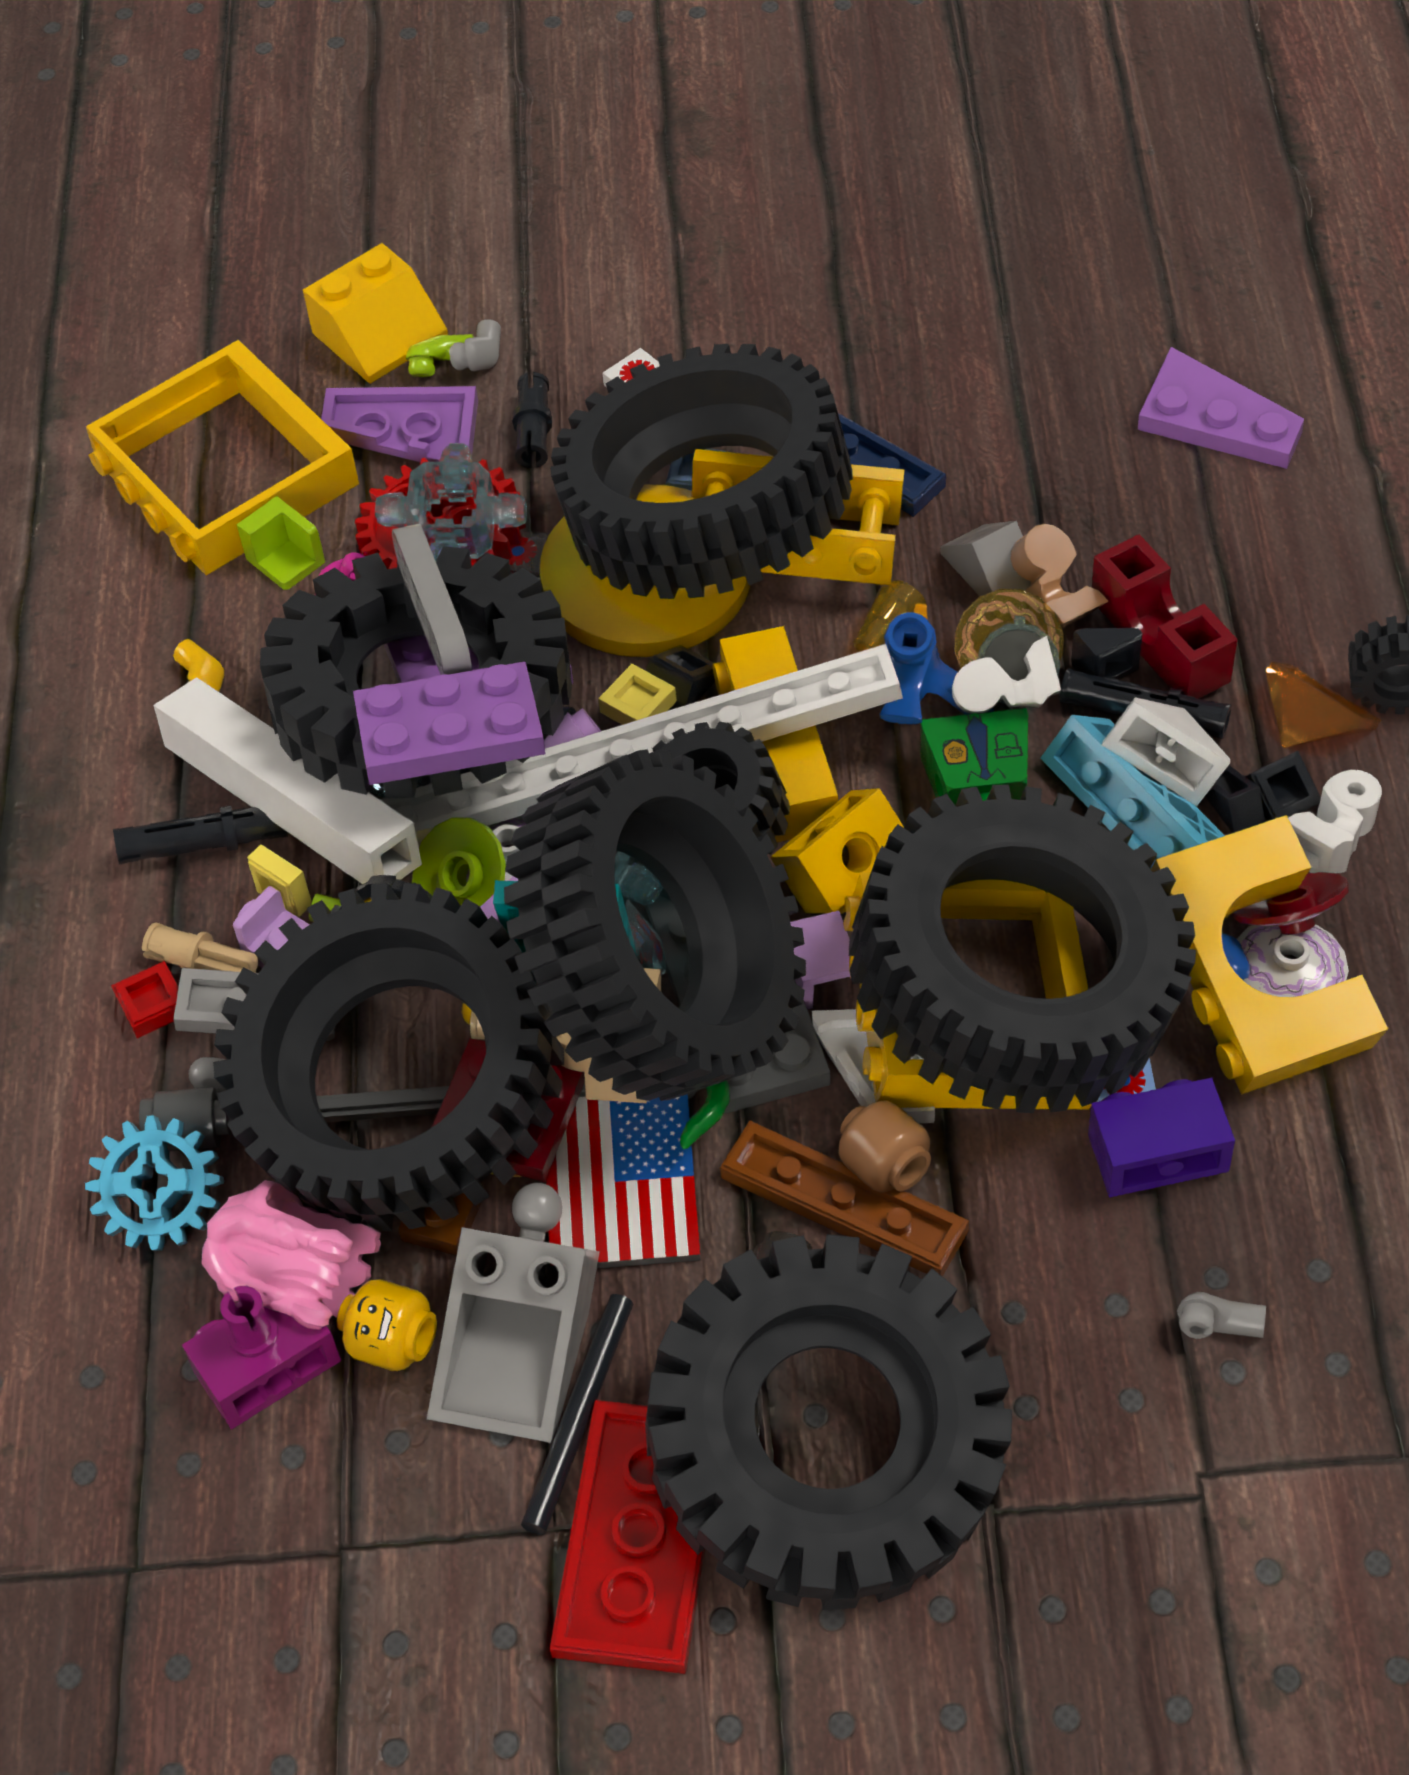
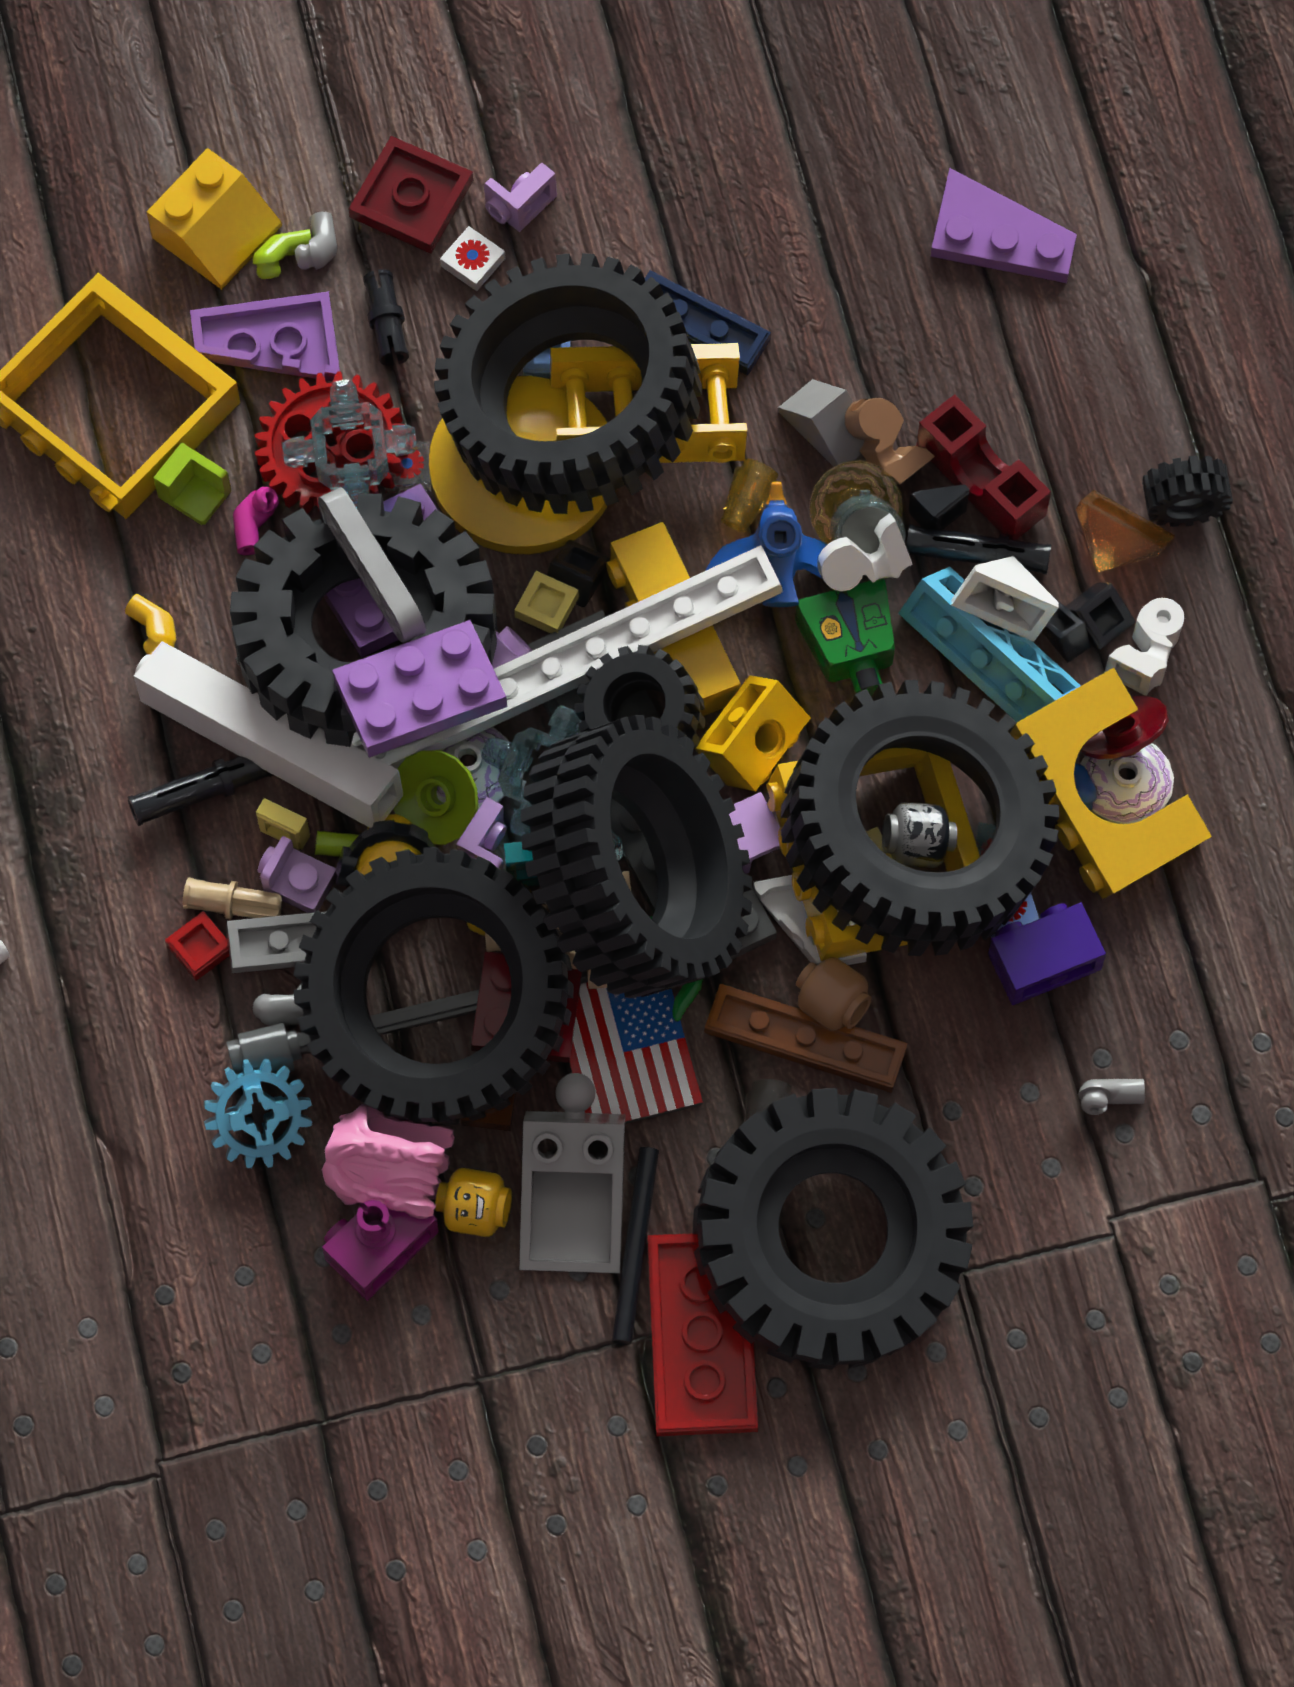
camera: 15 degrees left, 15 degrees up
(587, 315) = (411, 194): none -> dark red plate
(707, 325) = (525, 201): none -> lavender bracket
(1021, 964) = (918, 835): none -> light grey head

